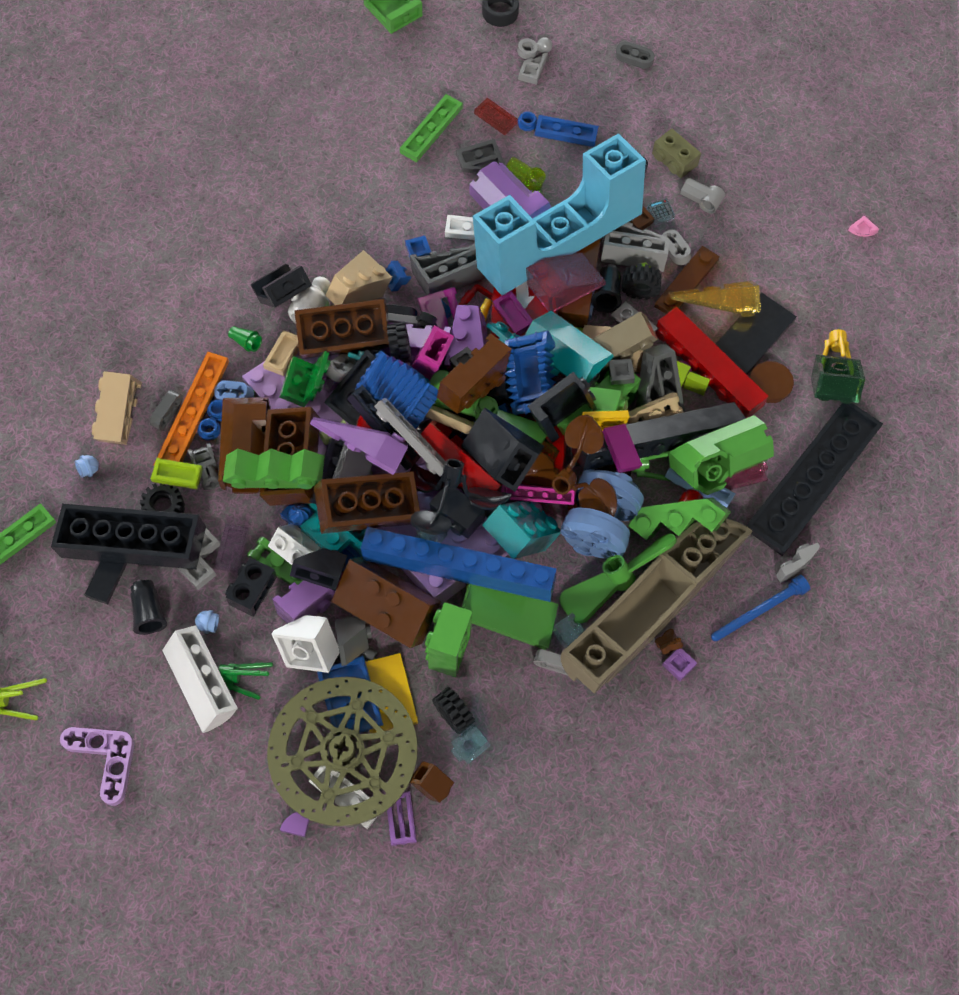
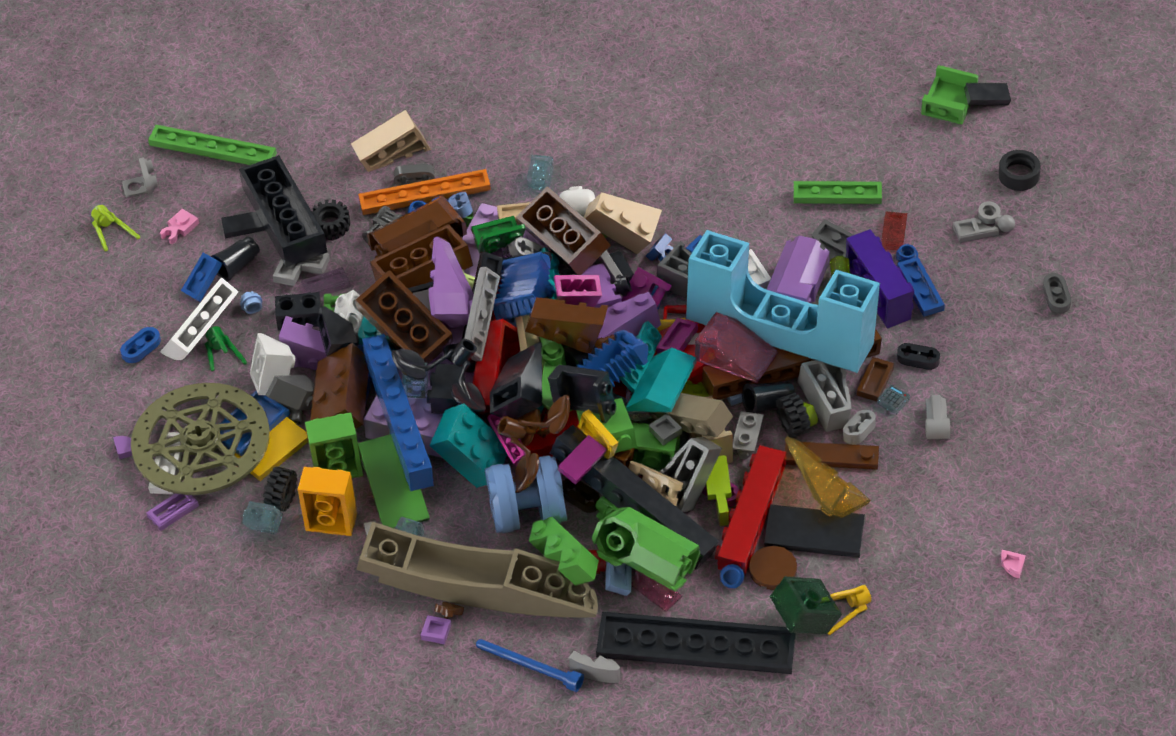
camera: 65 degrees right, 15 degrees down
(61, 633) = (181, 224): none -> bright pink plate
(86, 465) = (328, 156): light blue plate -> none
(108, 748) = (109, 303): lavender beam -> none
(148, 648) = (201, 277): none -> blue plate
(176, 473) = (358, 209): lime tile -> none
(185, 747) = (139, 346): none -> blue plate
(243, 314) = (540, 172): none -> clear light blue brick
(247, 339) = (519, 187): green cone -> none
(273, 469) = (388, 247): bright green brick -> none
(280, 285) = (579, 174): black panel -> none
(399, 341) = (574, 263): black tyre -> none
(431, 782) = (211, 508): reddish brown brick -> none
(505, 675) = (327, 501): none -> light orange brick
(548, 147) = (872, 262): none -> dark purple brick
(591, 594) = (478, 535): bright green piece -> none
(676, 153) = (965, 376): olive brick -> none
(766, 413) = (732, 576): none -> blue plate

